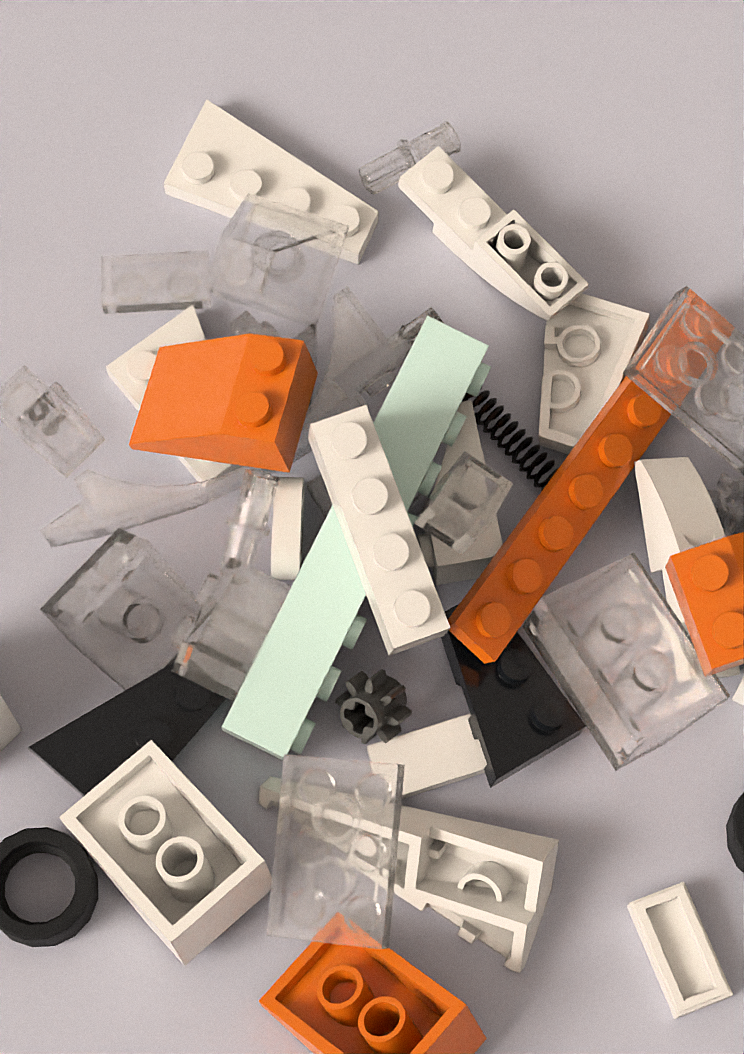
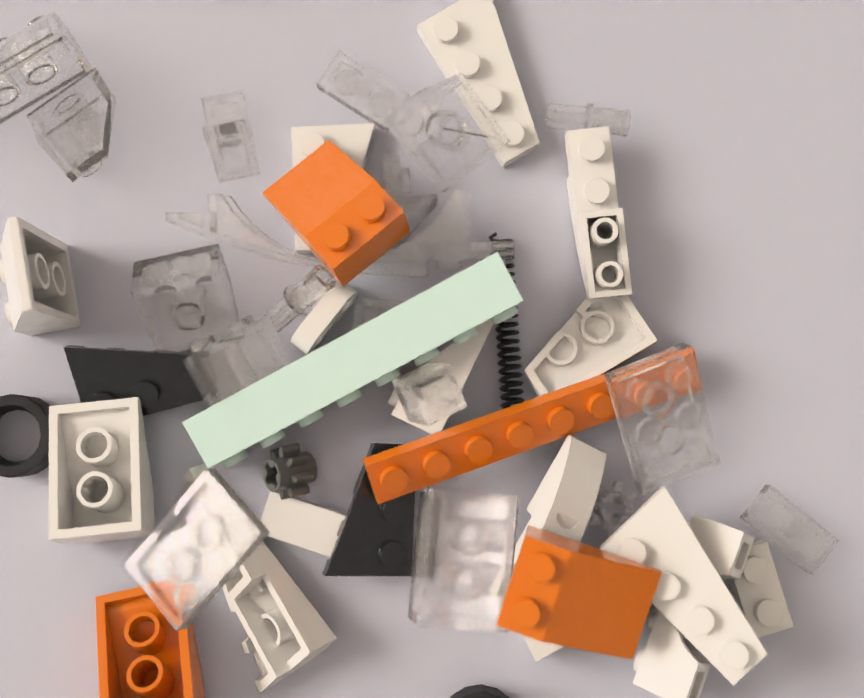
camera: 30 degrees right, 15 degrees up
(377, 530) = (354, 377): white brick -> none

